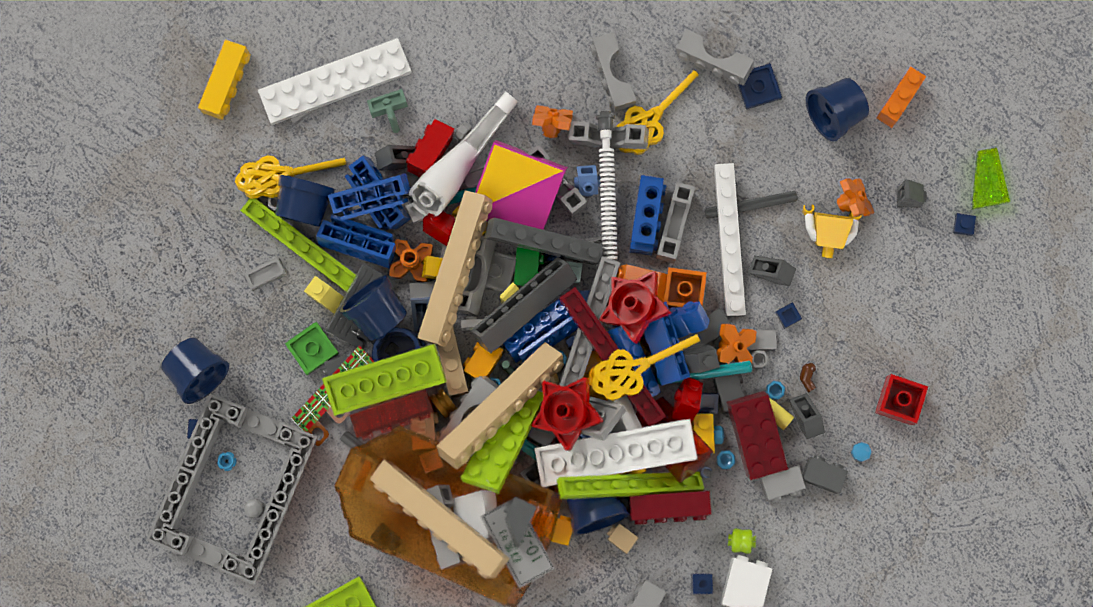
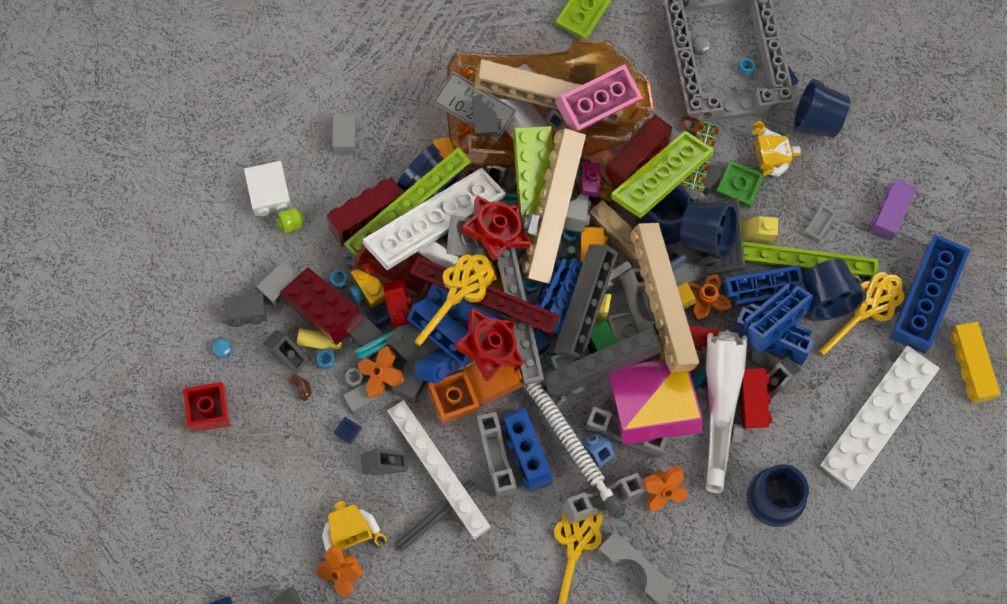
camera: 145 degrees right, 10 degrees down
(193, 248) = (892, 209): none -> medium lavender brick
(218, 155) = (929, 294): none -> blue brick
(262, 359) = (773, 151): none -> torso
(387, 105) = (819, 421): sand green plate -> none
(402, 476) = (598, 99): none -> bright pink brick
(448, 60) = (794, 492): none -> dark blue piece
(448, 418) = (590, 179): none -> magenta plate
(533, 398) = (530, 224): none -> light grey plate
(621, 538) = (391, 168): tan brick -> none
(701, 583) = (306, 170): dark blue brick -> none

